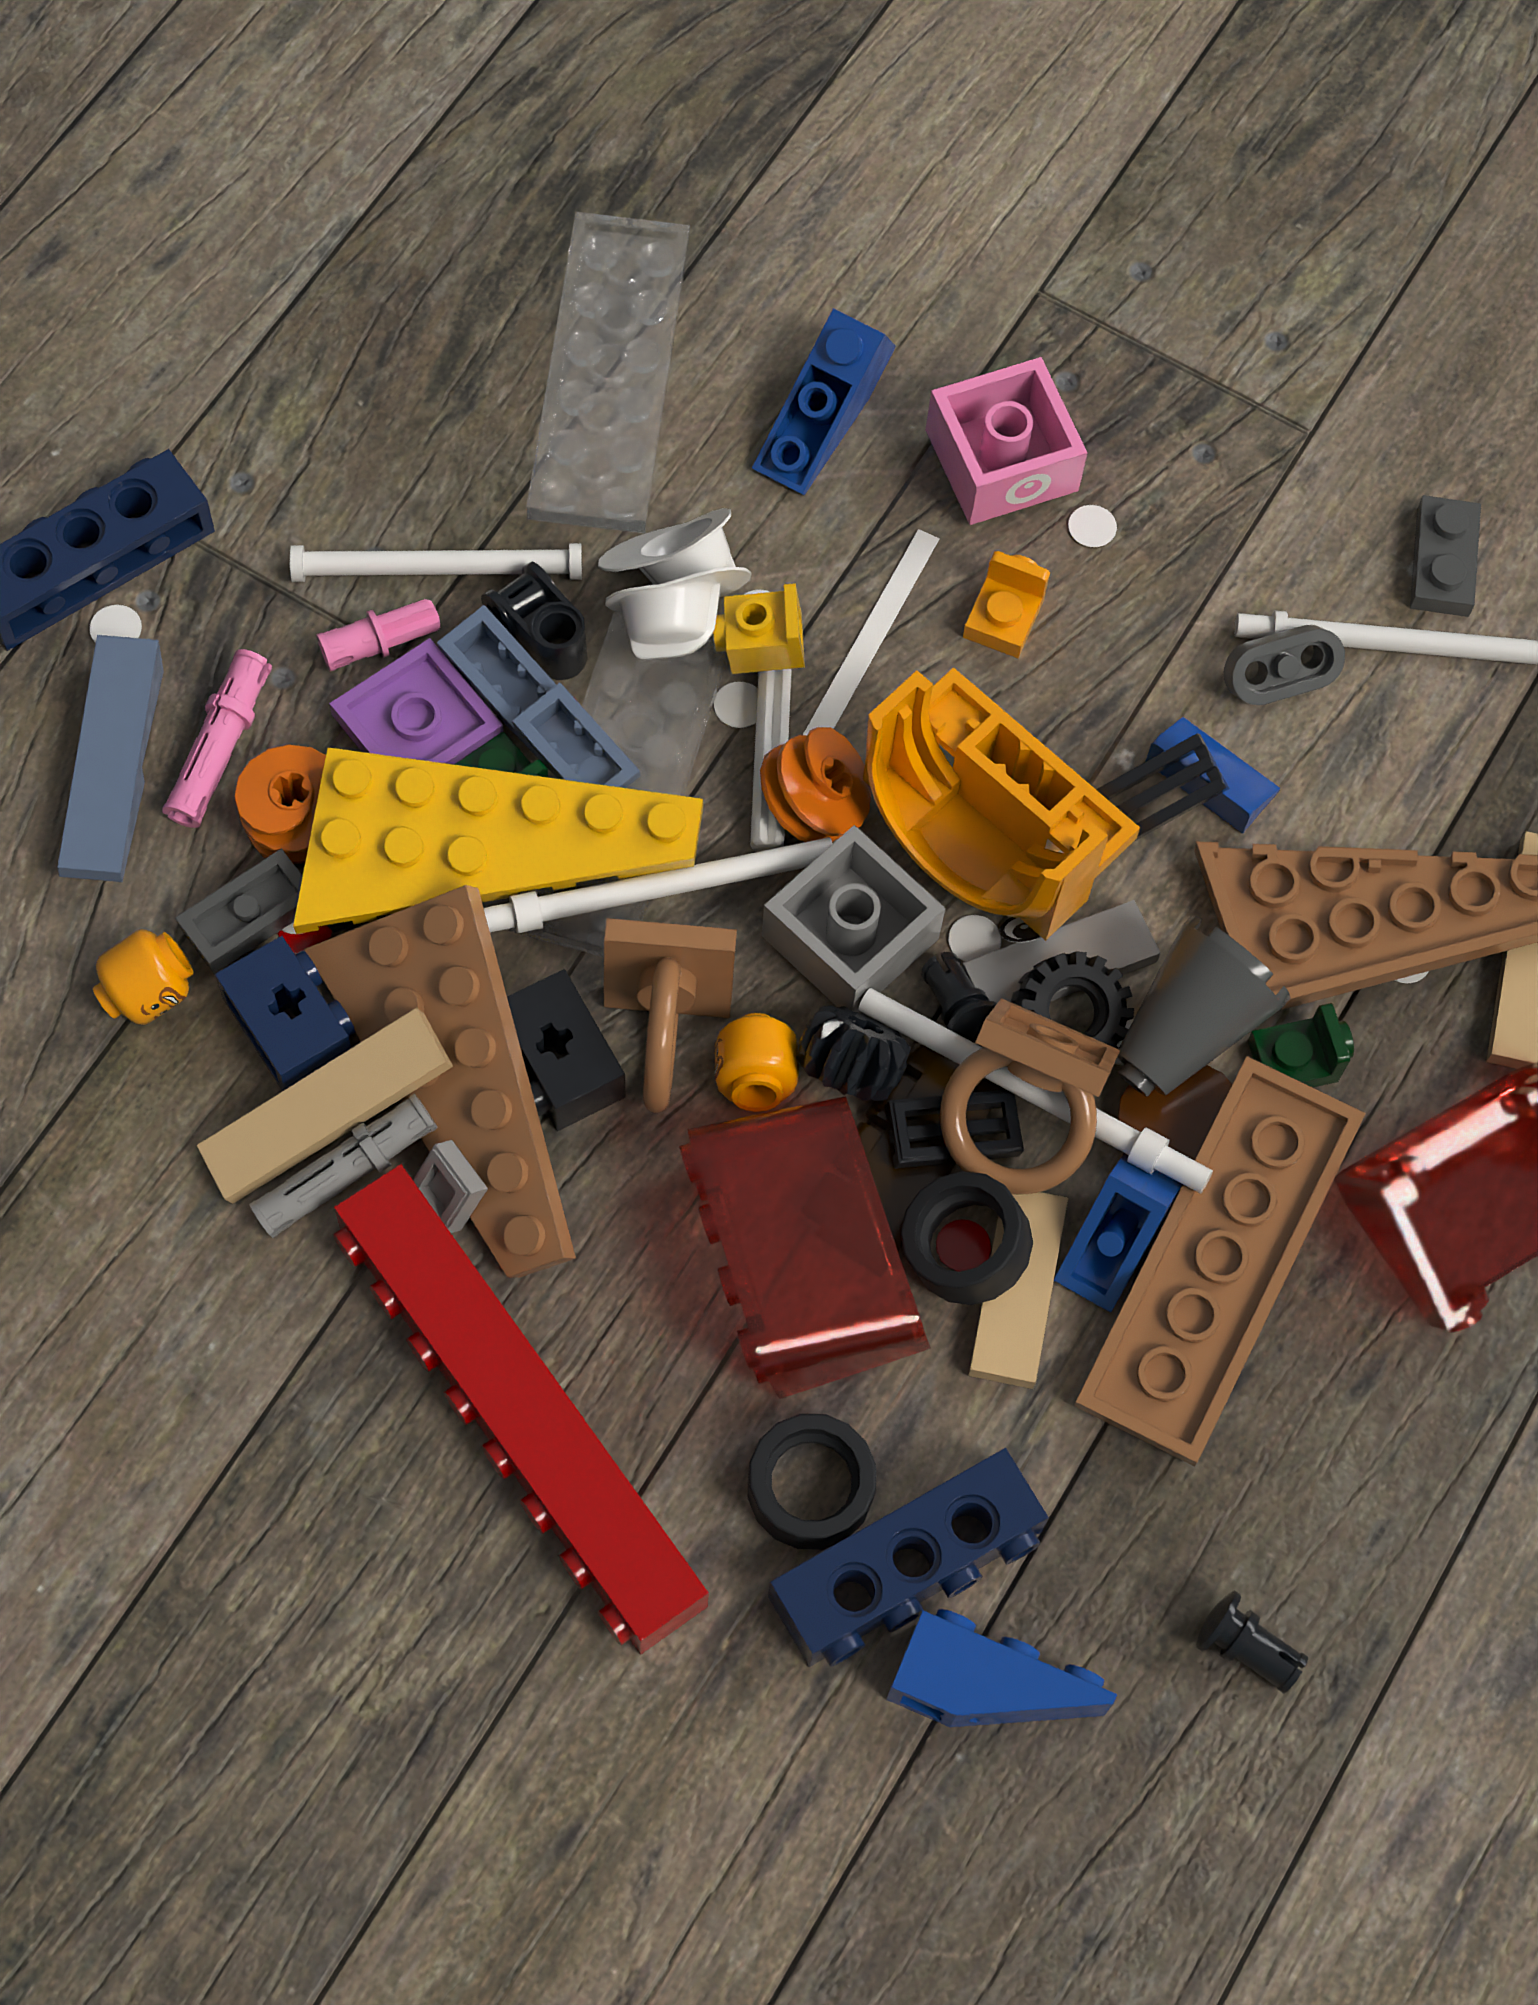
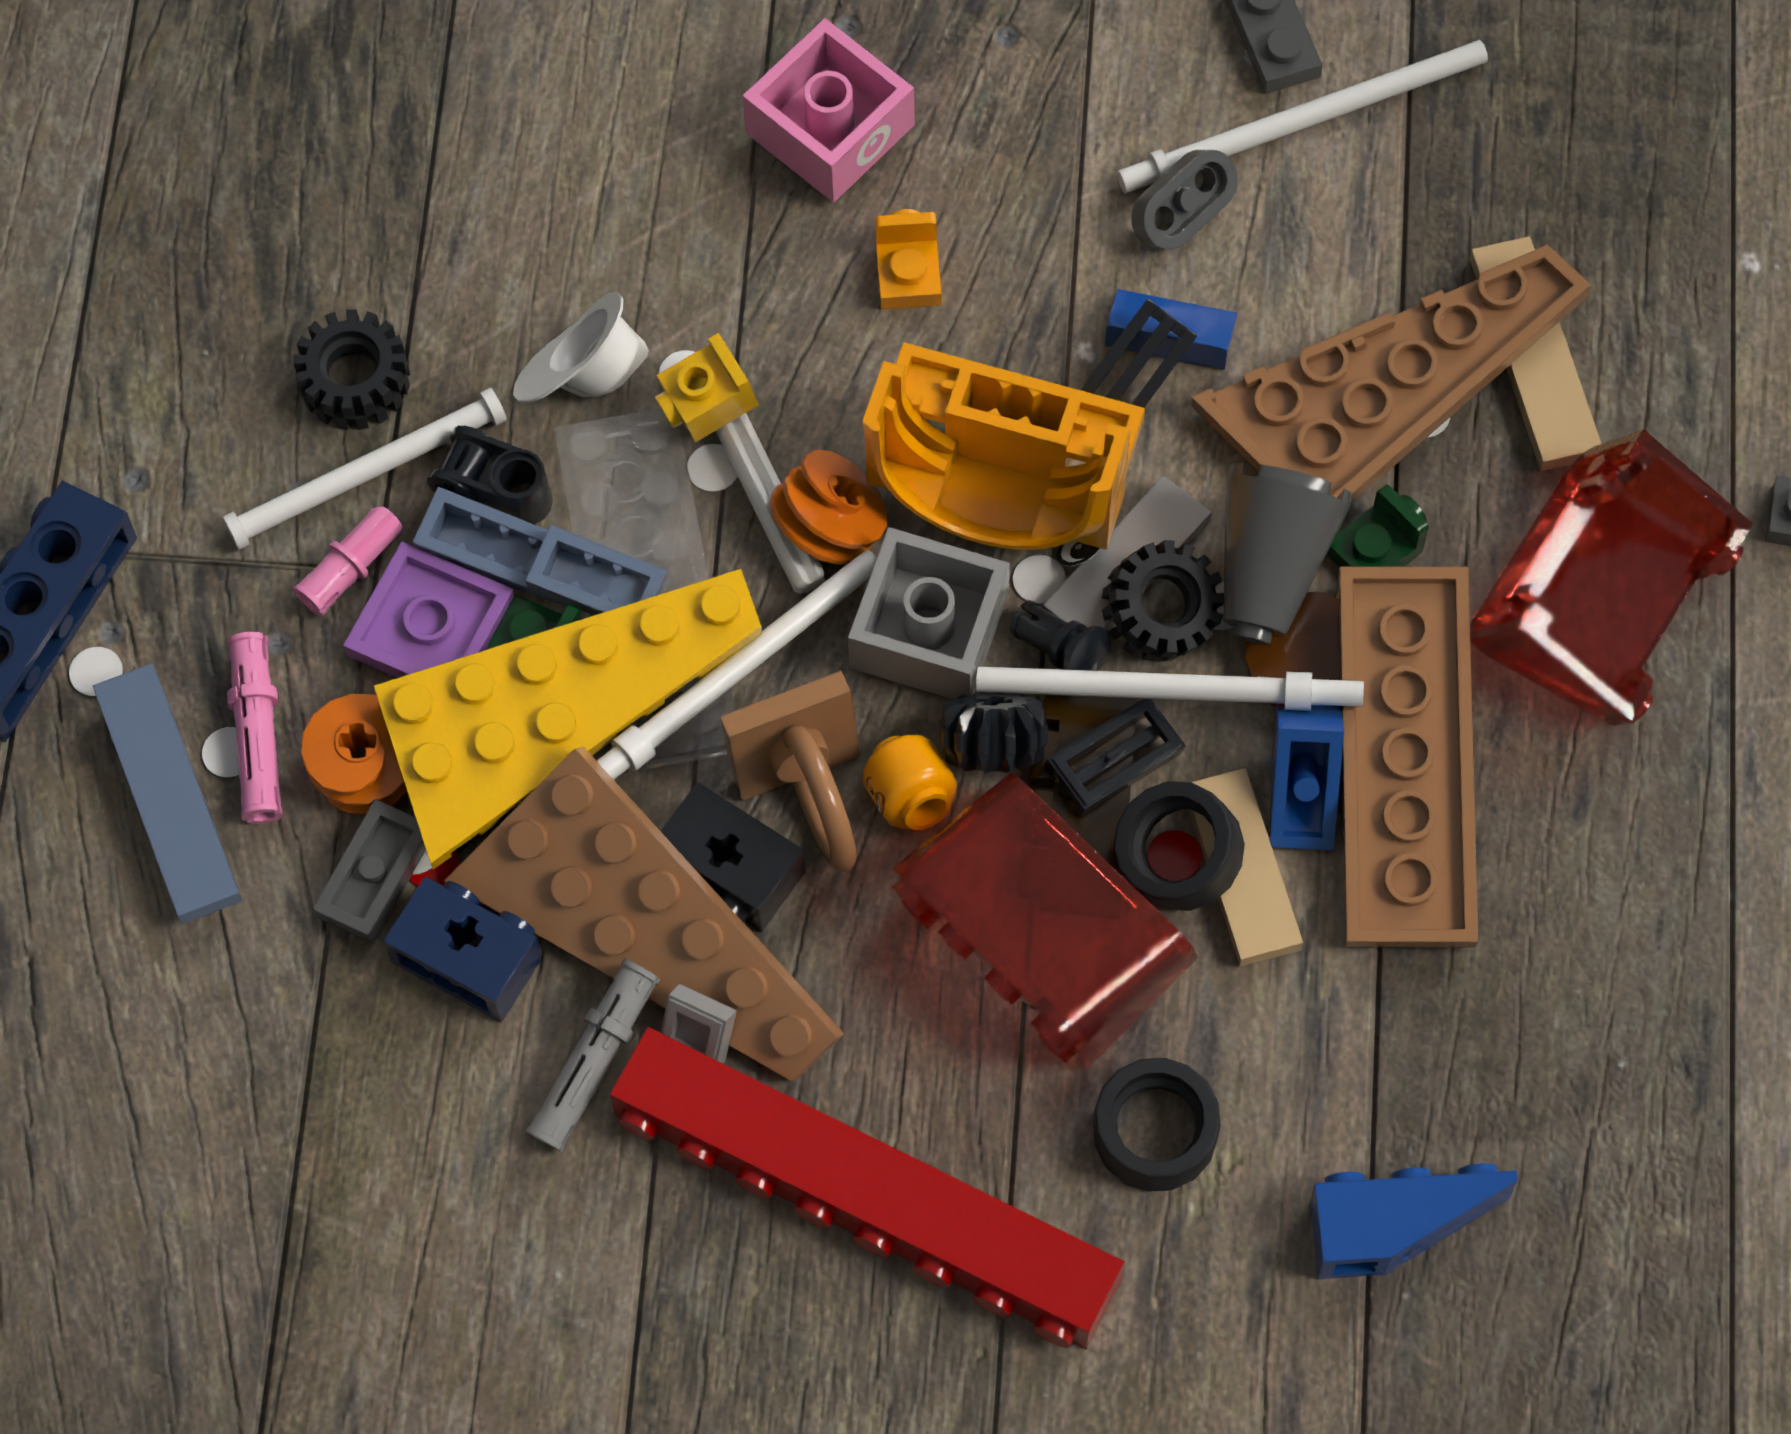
camera: 20 degrees left, 0 degrees up
(142, 977) = (312, 977): light orange head -> none
(178, 745) = (220, 752): none -> white sticker
(324, 1106) = (547, 1010): tan tile -> none
(471, 444) = (344, 339): none -> black tyre
(609, 373) = (427, 215): clear plate -> none
(675, 615) = (623, 416): white piece -> none
(824, 401) = (641, 151): blue slope -> none
(874, 631) = (798, 346): white sticker -> none
(988, 1491) = (1316, 1056): dark blue brick -> none
(1042, 1056) = (1170, 652): medium nougat tile -> none
(1092, 526) = (943, 151): white sticker -> none
(1250, 1643) = (1602, 1073): black pin -> none

